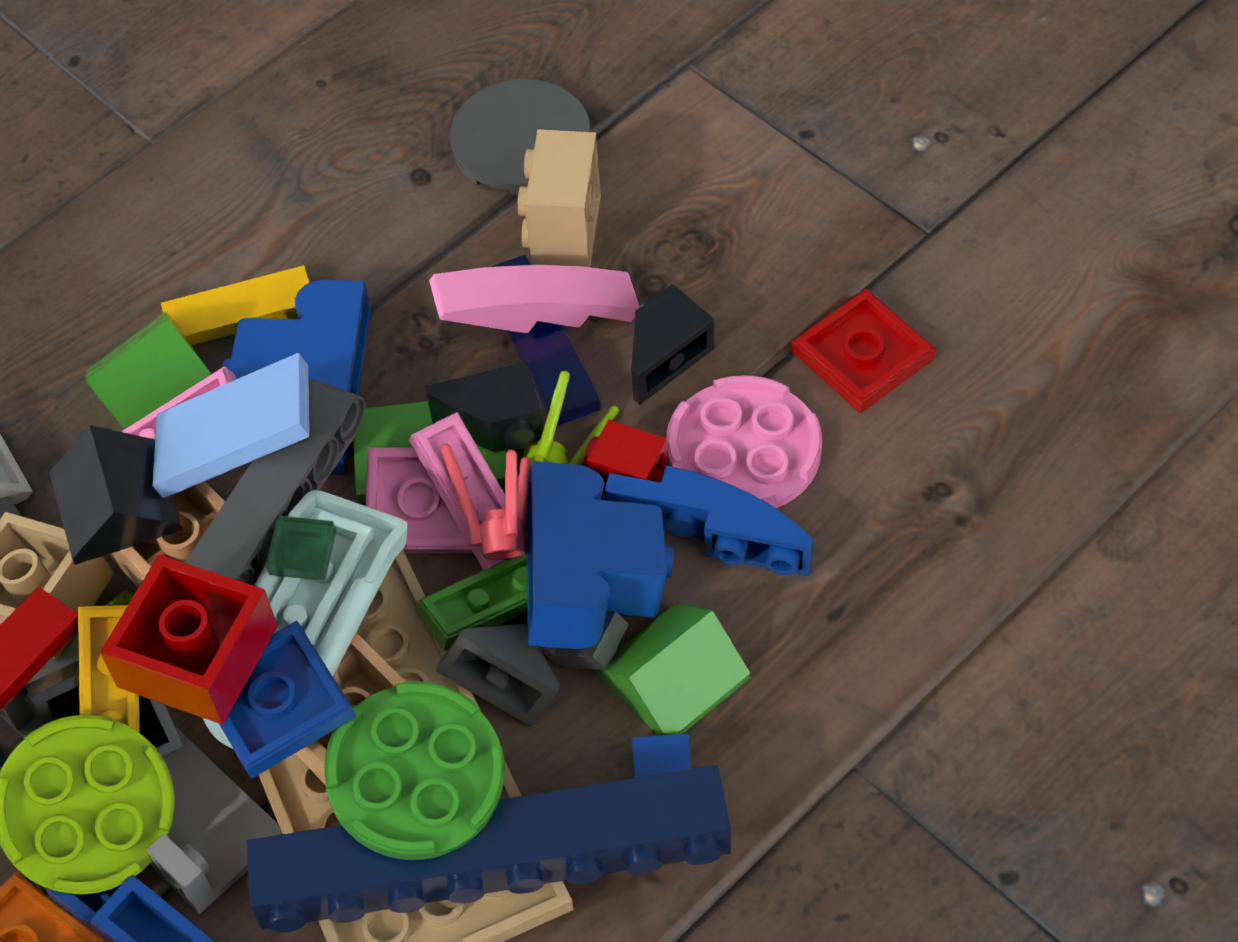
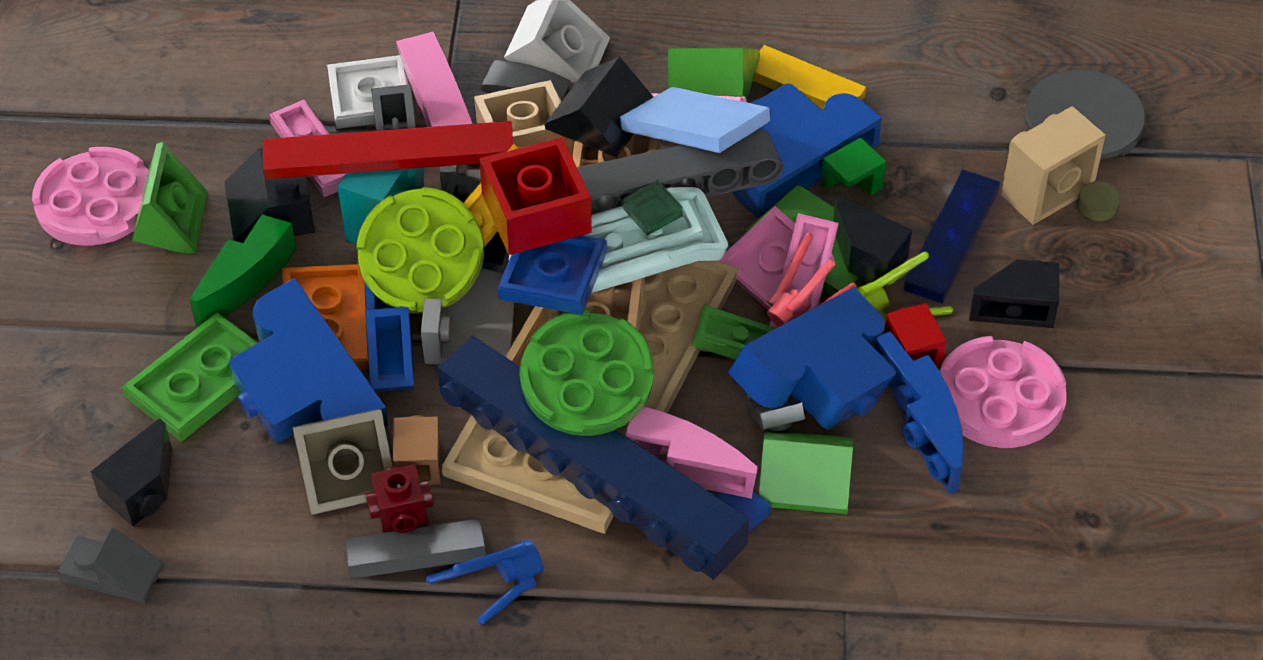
camera: 45 degrees right, 5 degrees down
(389, 346) = (854, 165): none -> green panel
(501, 669) = (705, 377): dark grey slope -> none
(523, 294) = (963, 197): bright pink slope -> none
(582, 751) = (693, 452): none -> bright pink slope
(622, 202) = (1099, 201): none -> olive tile
(863, 350) = (1143, 403): red tile -> none

